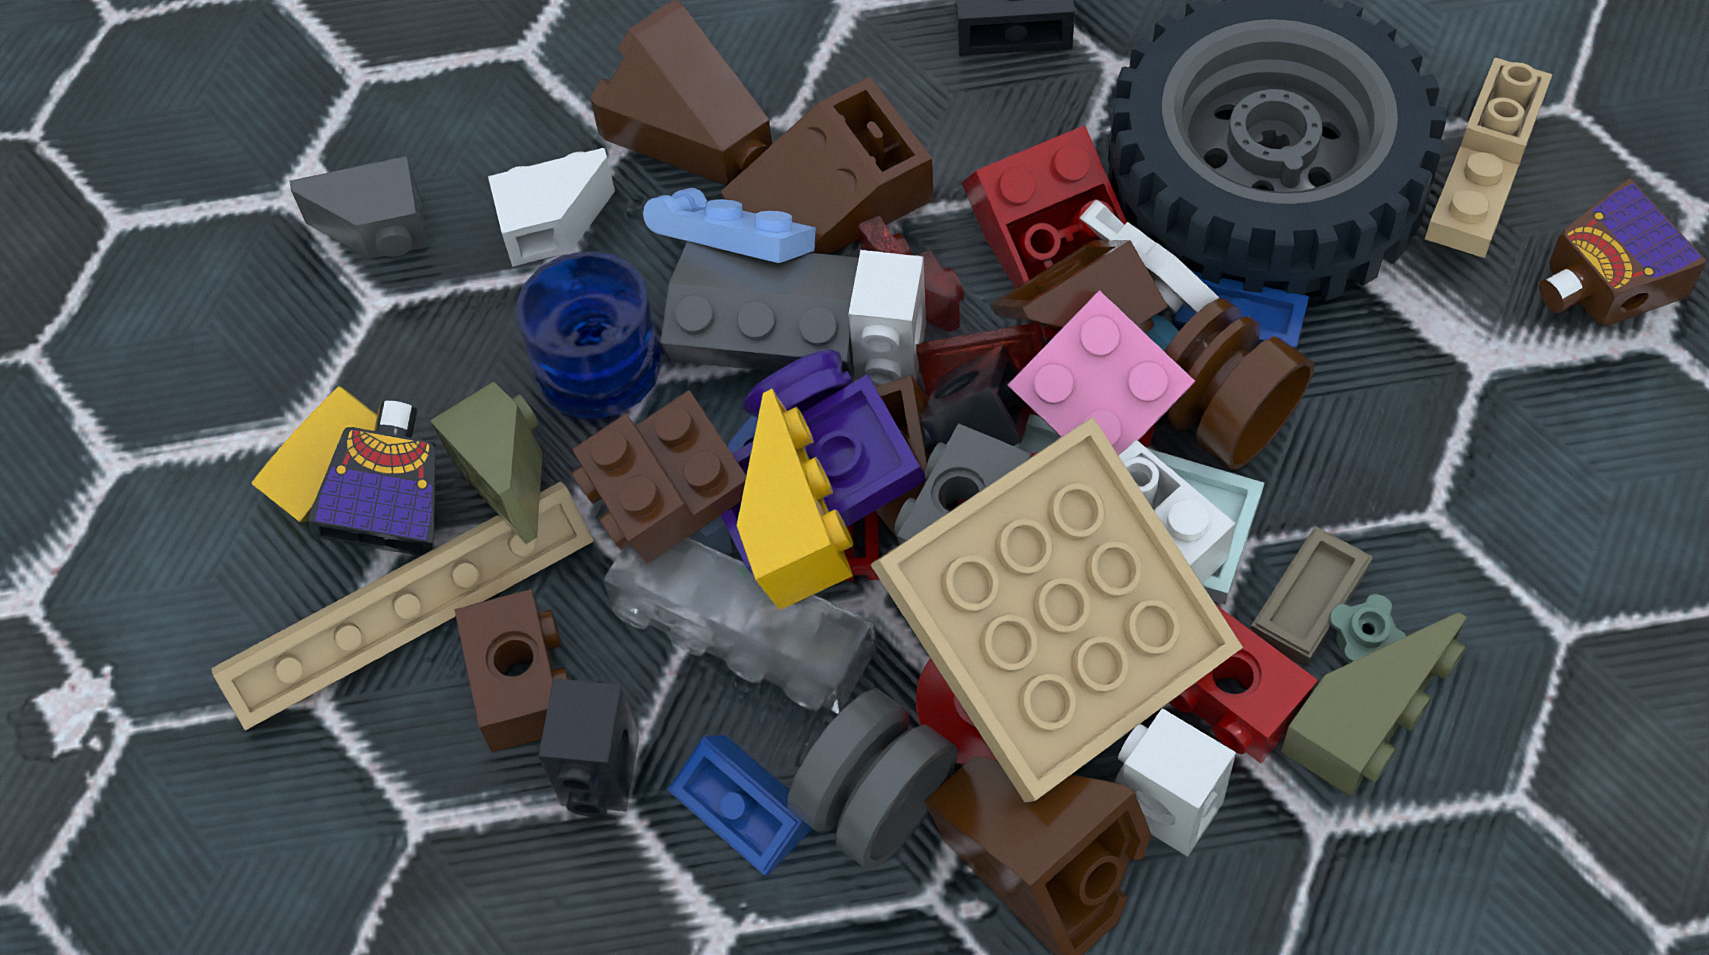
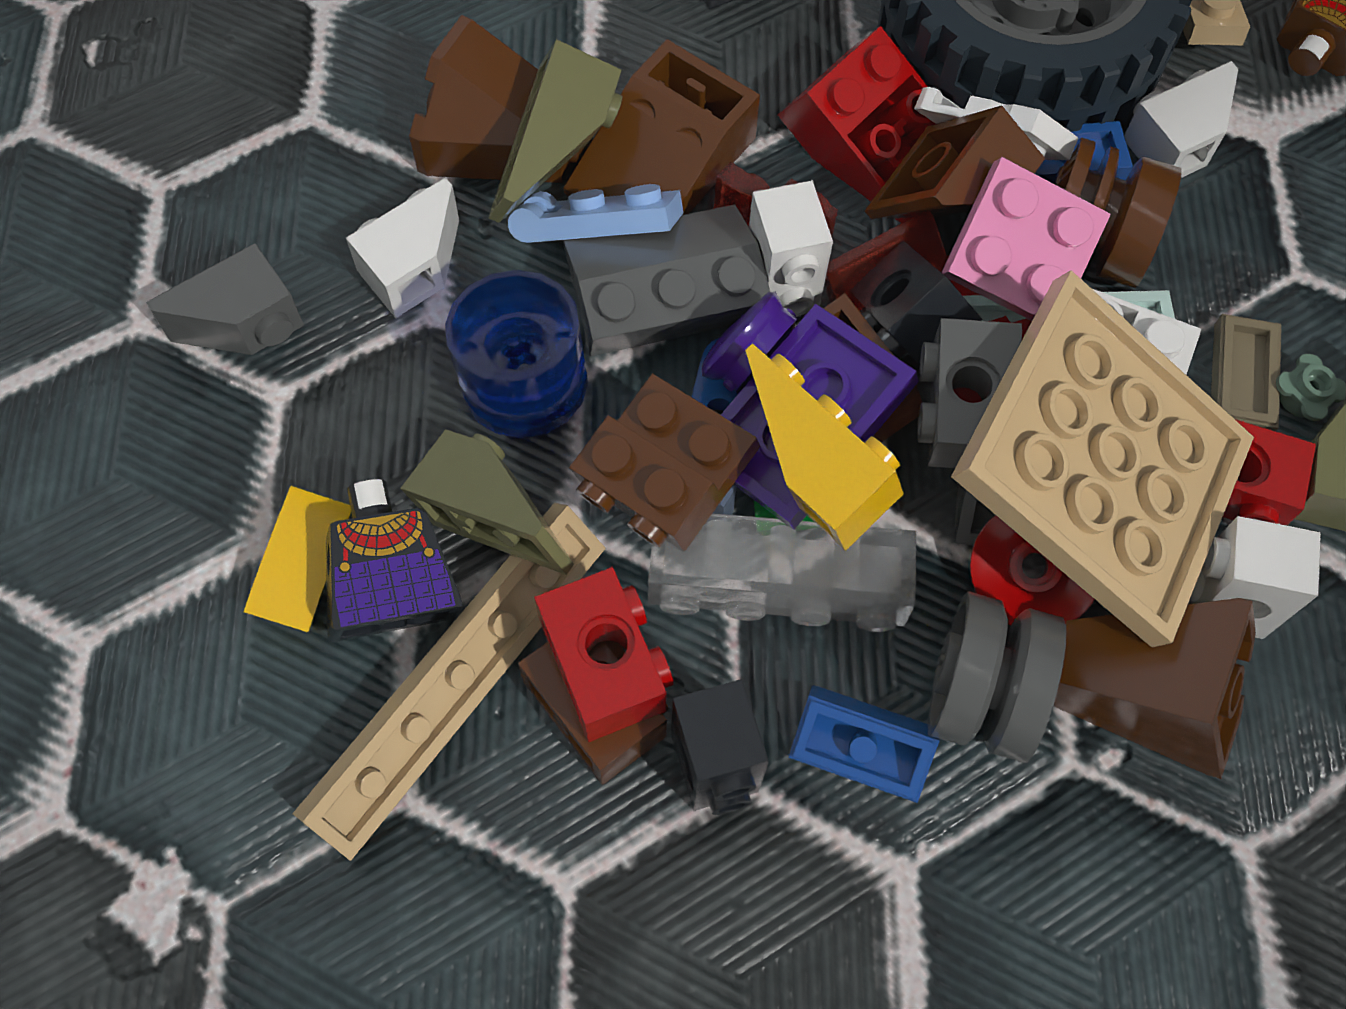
camera: 30 degrees left, 5 degrees up
(510, 588) = (604, 694): none -> red brick
(721, 129) = (563, 113): none -> olive slope
(1381, 321) = (1185, 121): none -> white slope

